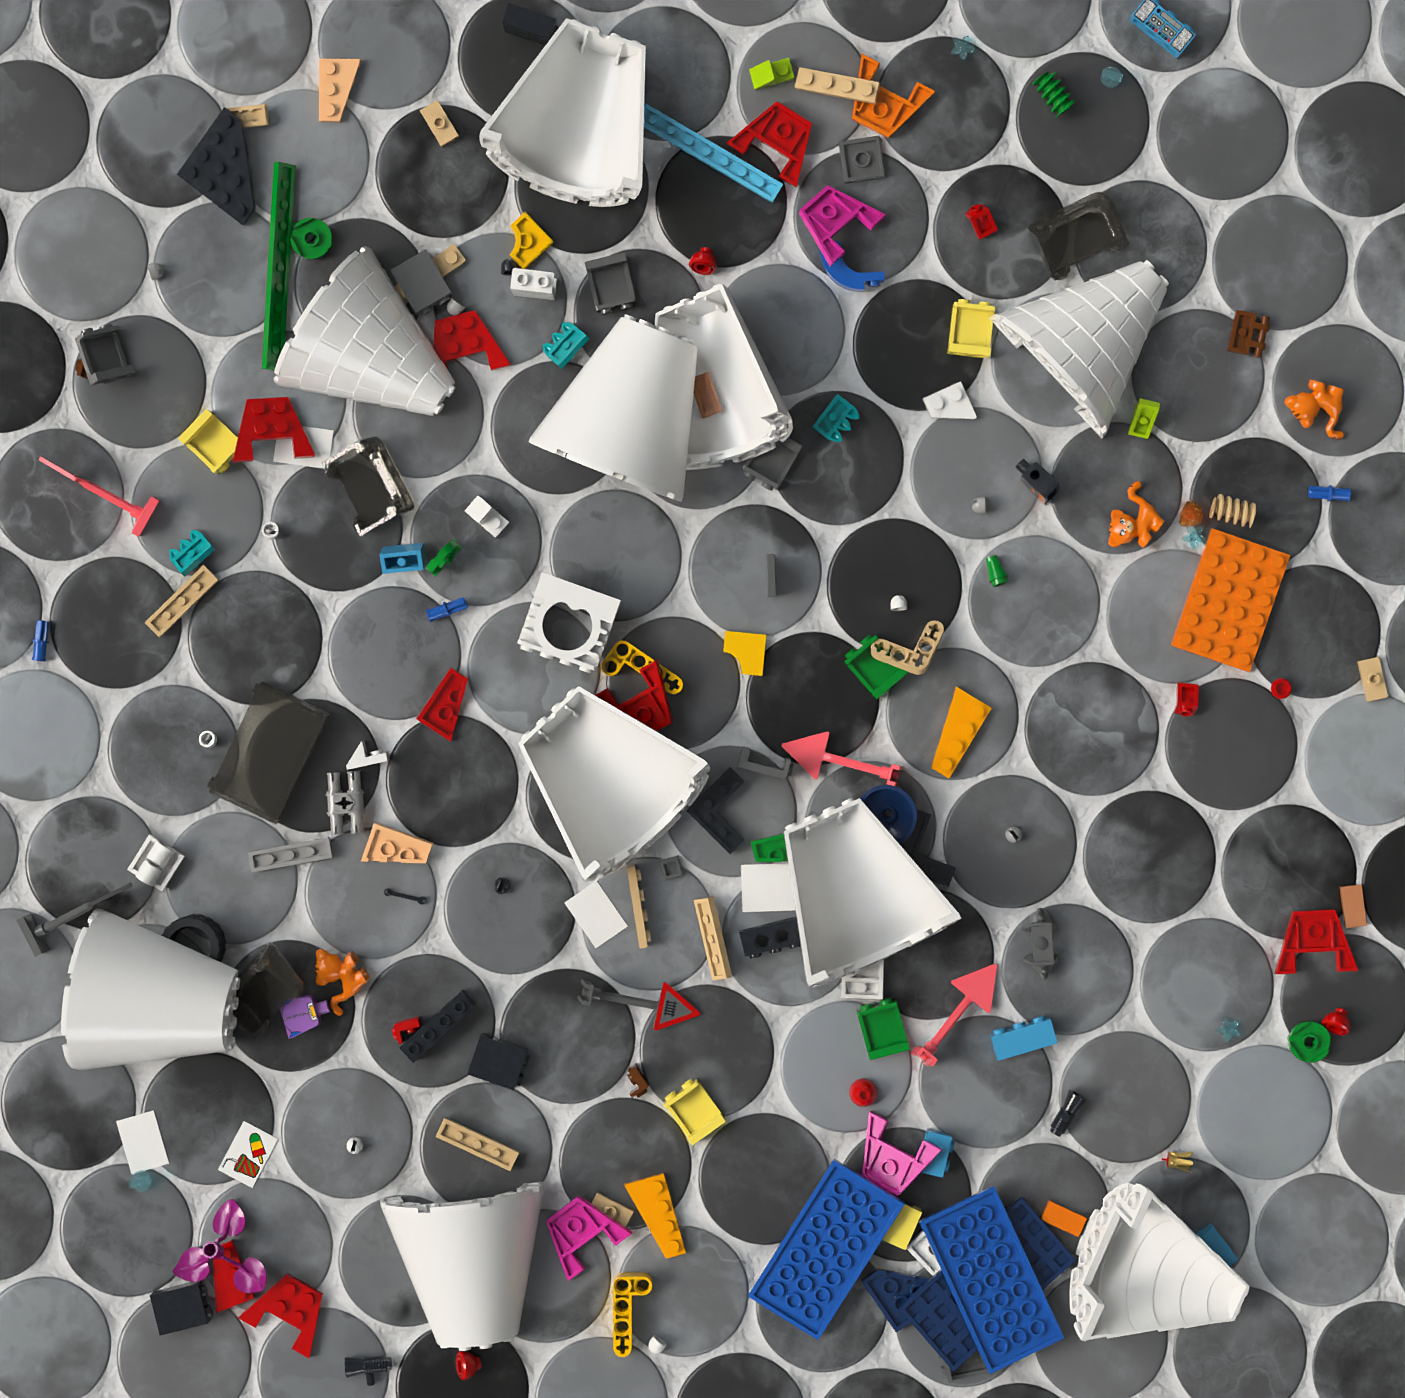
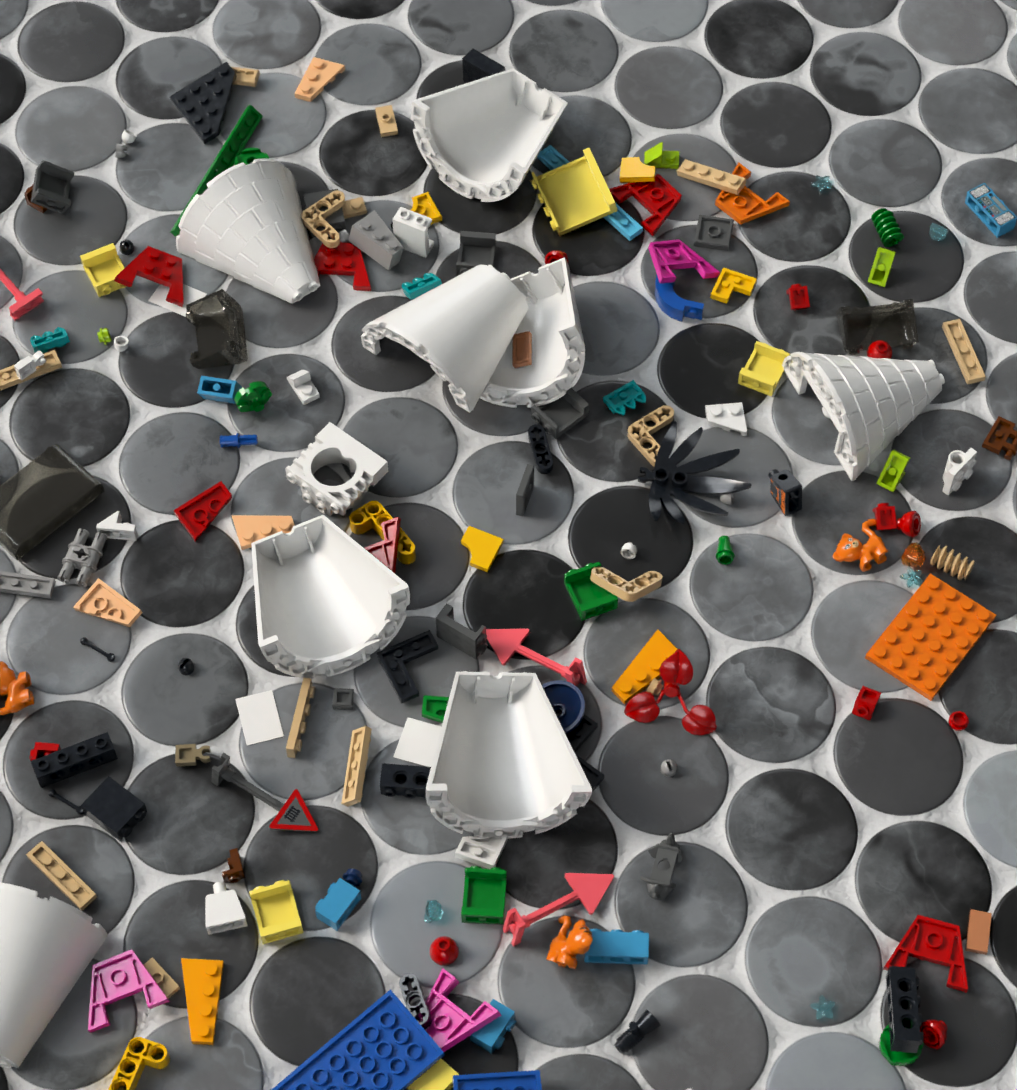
camera: 15 degrees right, 30 degrees down
(155, 247) = (128, 137): none -> white hinge
(185, 602) = (28, 365): none -> white plate
(215, 403) = (123, 249): none -> black hinge
(247, 526) = (104, 336): none -> lime plate
(422, 305) = (319, 216): none -> tan beam
(464, 1069) = (52, 793): none -> black hinge
(495, 304) = (376, 240): none -> light grey wedge
(514, 705) = (256, 527): none -> light nougat wing
(545, 981) = (188, 754): none -> dark tan plate
(644, 1126) = (223, 910): none -> white torso
(692, 165) = (574, 194): none -> light yellow panel
(748, 106) = (635, 171): none -> yellow tile
(749, 1084) = (337, 904): none -> dark azure brick
(752, 1053) = (353, 877): none -> dark blue plate
(753, 500) = (539, 455): none -> black beam
(839, 1059) = (433, 911): none -> clear light blue plate
(848, 1153) = (409, 995): none -> black beam
(869, 452) = (645, 431): none -> tan beam
(900, 224) = (732, 281): none -> yellow plate
(917, 505) = (673, 480): none -> black plant
(974, 753) = (655, 687): none -> tan plate
(981, 1060) = (564, 949): none -> orange animal
(994, 751) = (674, 671): none -> red plant
(1062, 151) = (882, 266): none -> lime slope
(1088, 265) = (879, 349): none -> red brick
(1148, 475) = (885, 517): none -> red bracket
(1176, 477) = (910, 523): none -> red brick
(1178, 234) = (963, 351): none -> tan plate
(1217, 392) = (957, 469): none -> white plate
(1309, 1046) = (902, 995): none -> black brick

